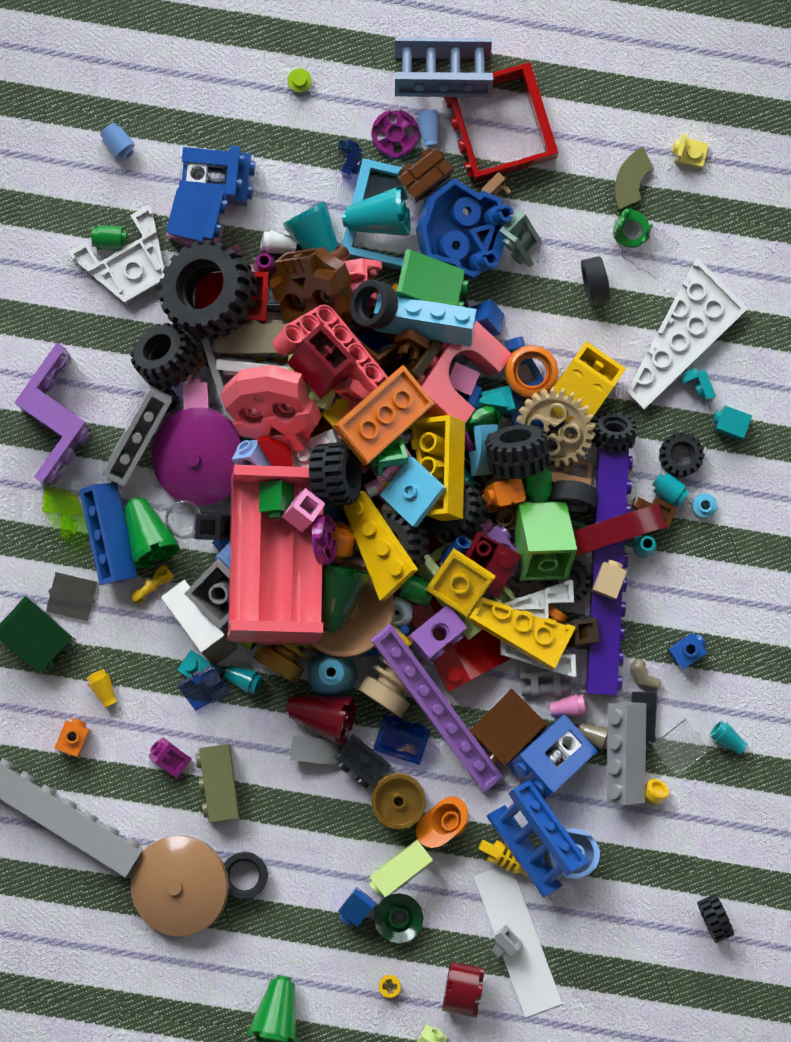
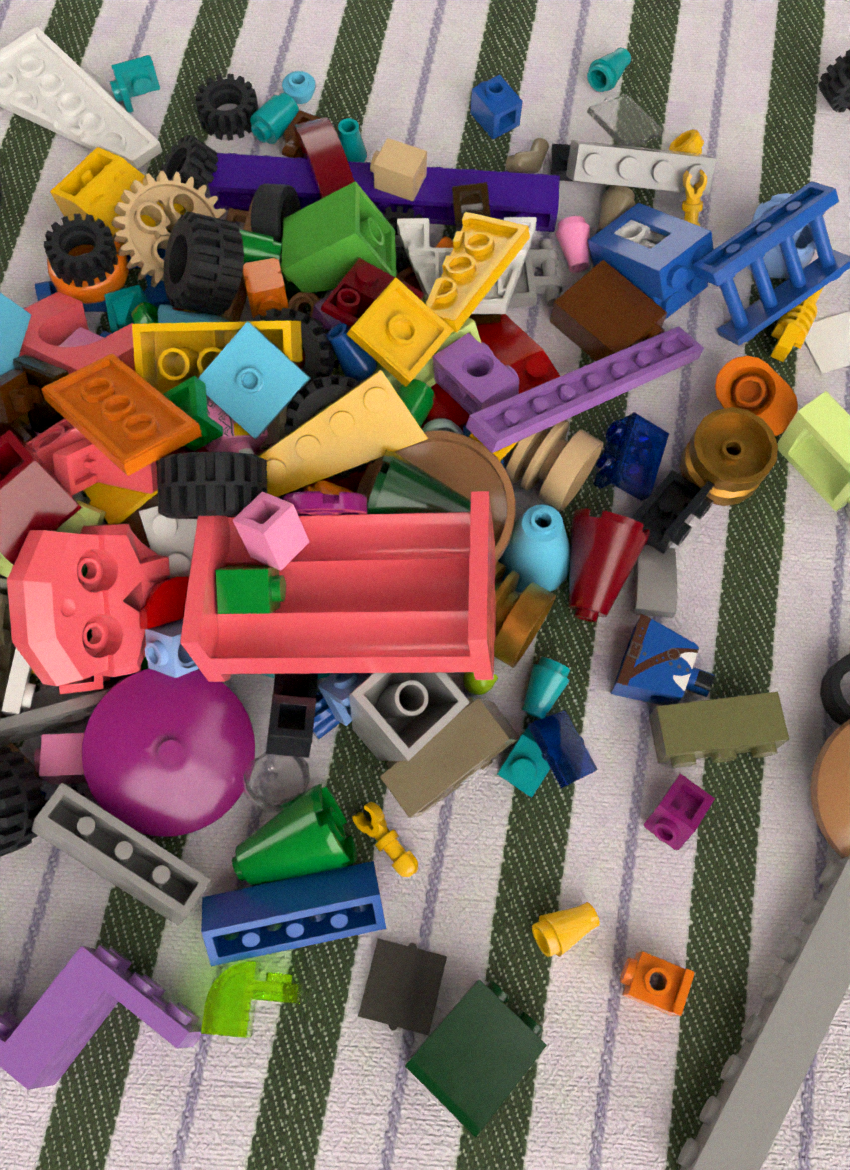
camera: 85 degrees left, 15 degrees down
(257, 749) = (659, 666): none -> torso
(541, 359) = (79, 233): none -> black tyre
(596, 789) = (693, 204): none -> yellow piece
(731, 422) = (189, 48): teal brick -> none

